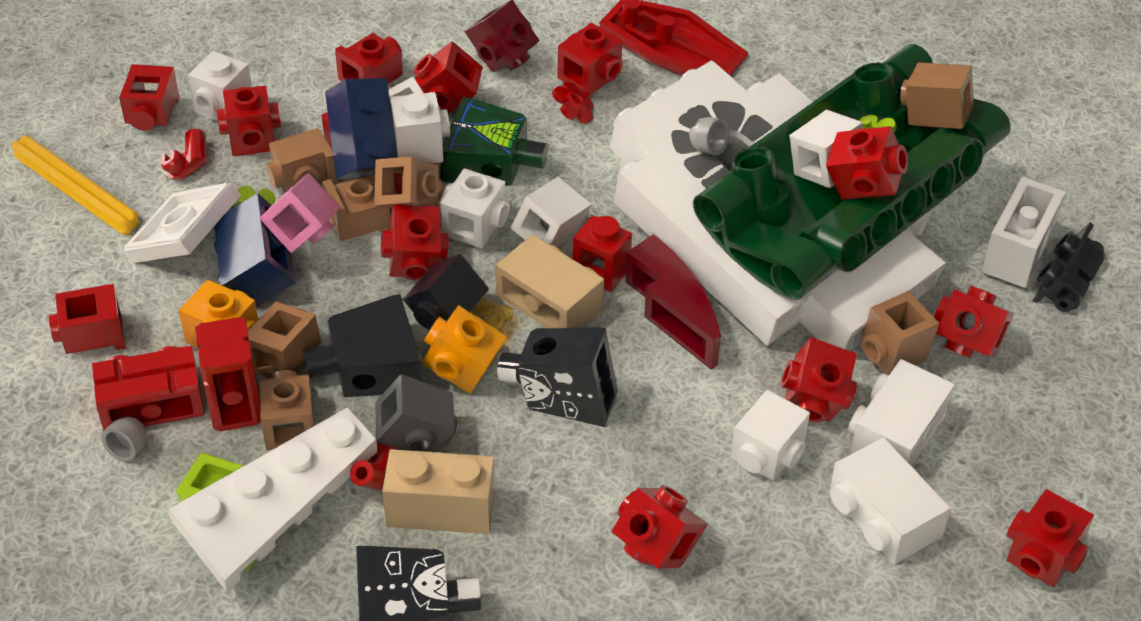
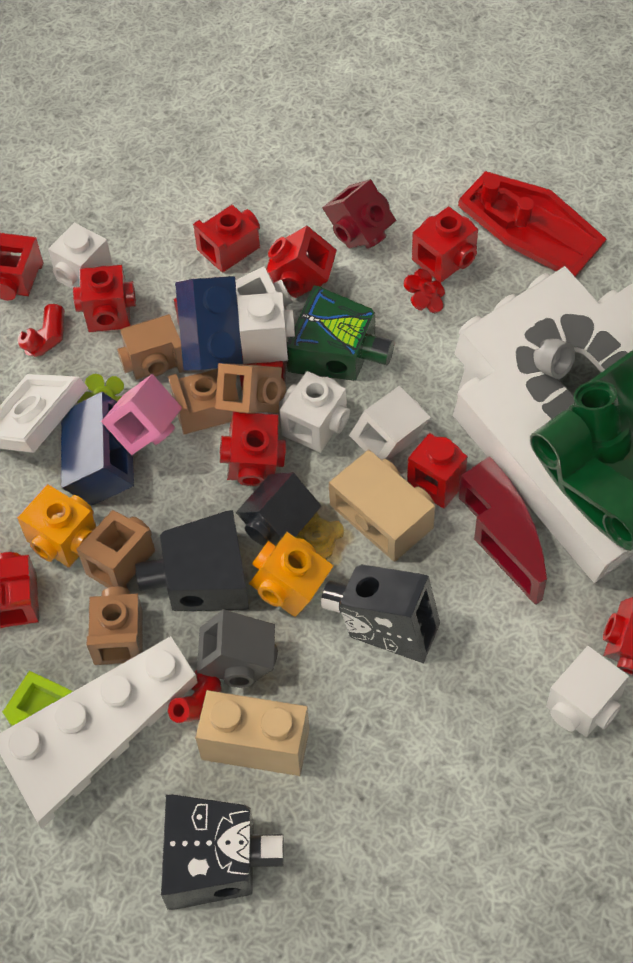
camera: 10 degrees right, 10 degrees up
(228, 373) = (58, 589): red brick -> none
(658, 527) = (464, 792): red brick -> none

